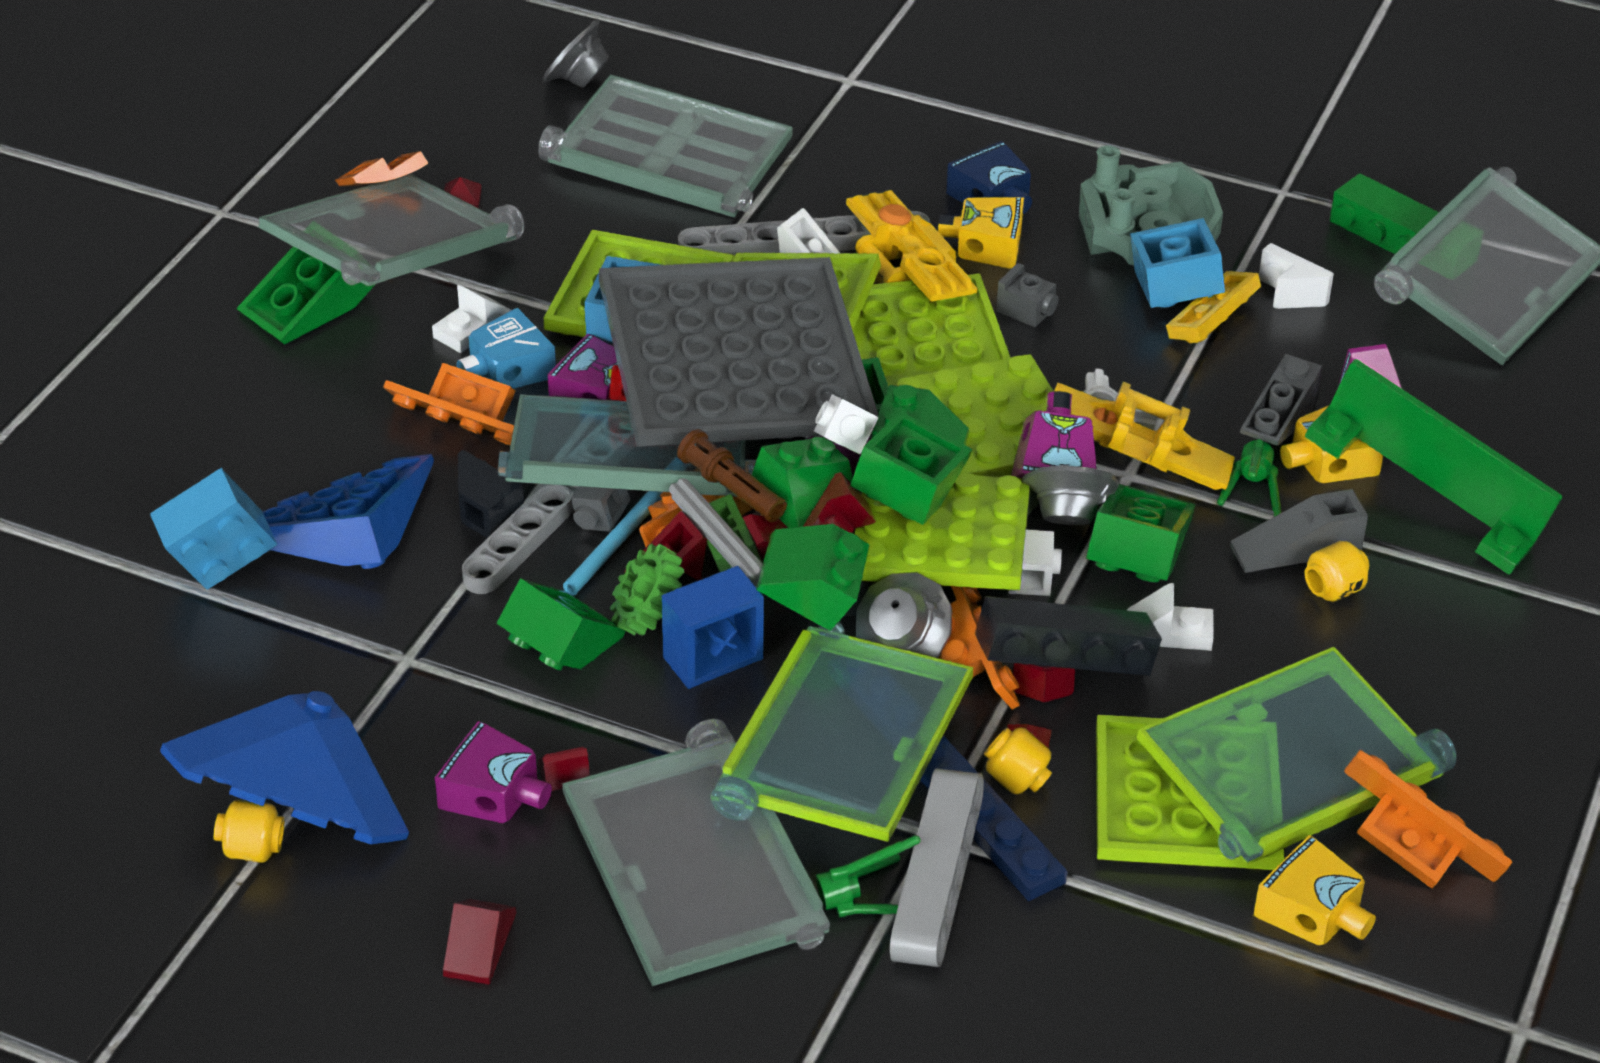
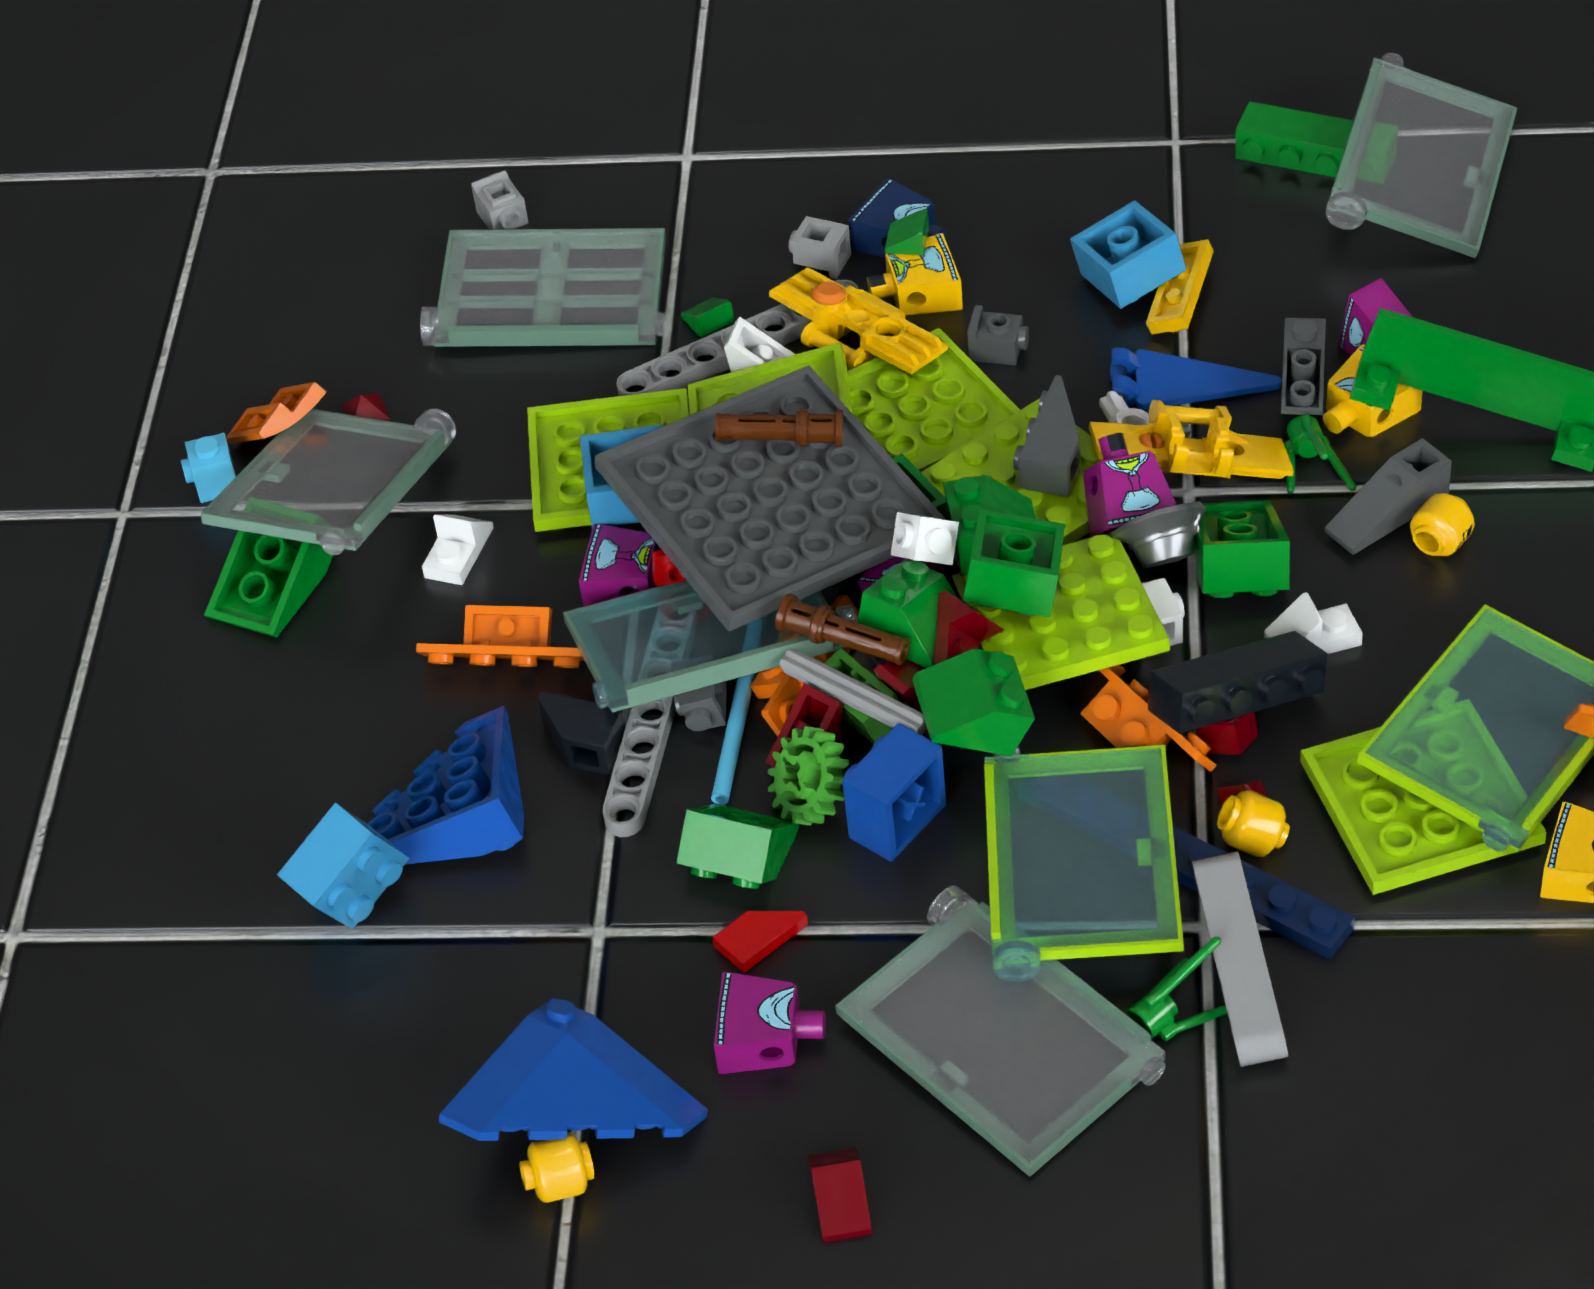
camera: 15 degrees left, 5 degrees up
(305, 186) = (209, 465): none -> medium azure brick
(510, 351) = (520, 568): dark azure torso -> none
(536, 707) = (757, 935): none -> red tile
(564, 767) = (824, 986): dark red slope -> none
(580, 59) = (408, 221): flat silver hat -> none
(667, 66) = (499, 202): none -> light grey window
(787, 206) = (709, 316): none -> green slope
(787, 300) = (802, 427): none -> reddish brown pin
(917, 179) = (821, 245): none -> light grey brick
(919, 622) = (1094, 720): flat silver hat -> none
(991, 189) = (908, 234): none -> green slope
(1008, 391) = (1052, 445): none -> dark grey slope
(1139, 199) = (1056, 199): sand green brick -> none
(1170, 380) = (1180, 379): none -> blue flag
(1295, 279) = (1245, 232): white slope -> none

